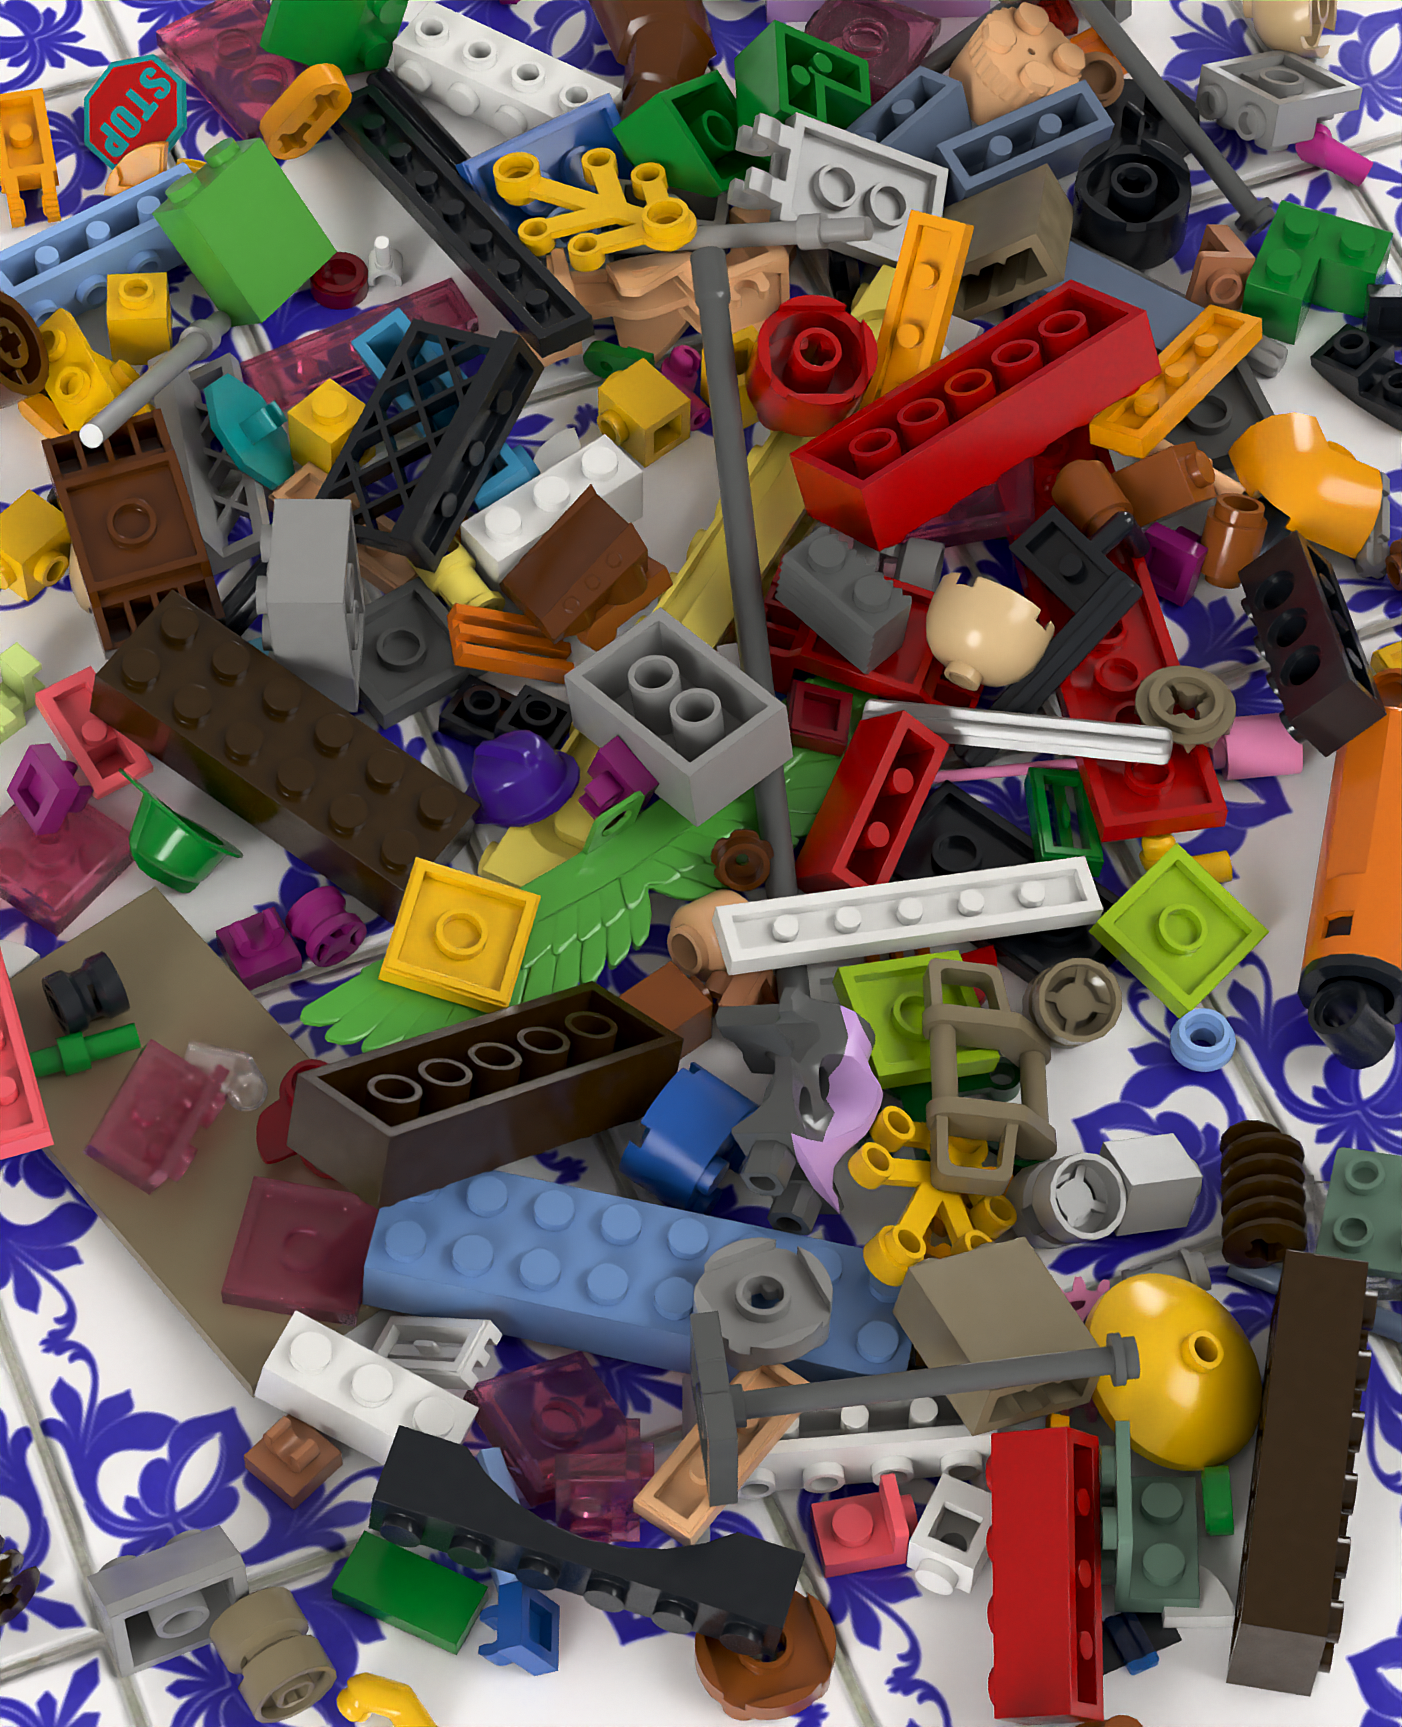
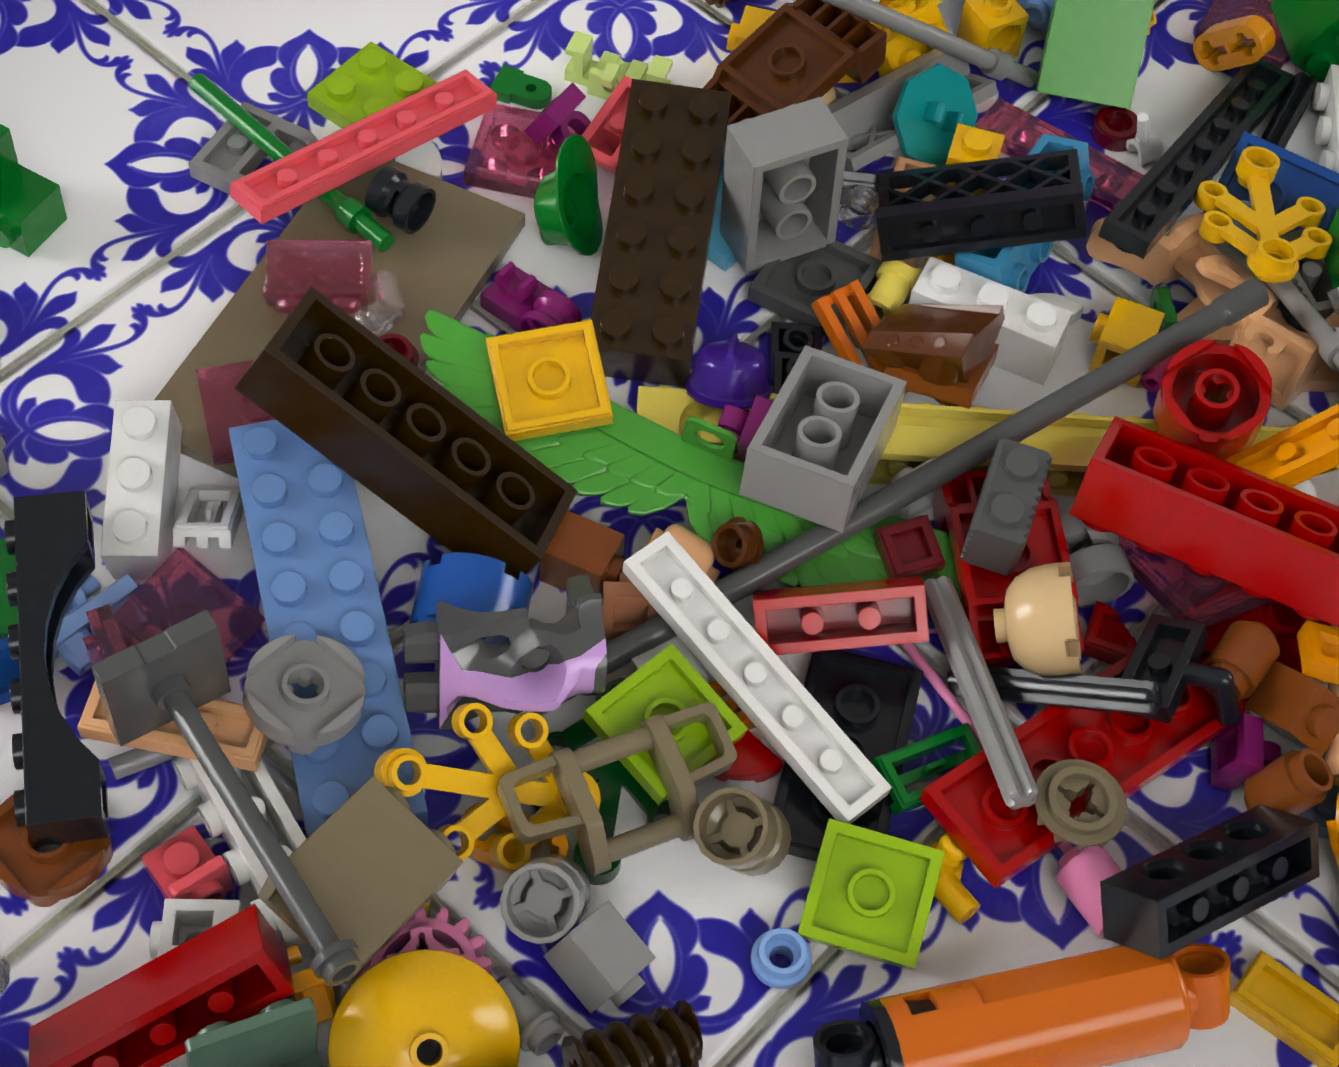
camera: 60 degrees right, 0 degrees up
(293, 1460) = (89, 473): nougat tile -> none

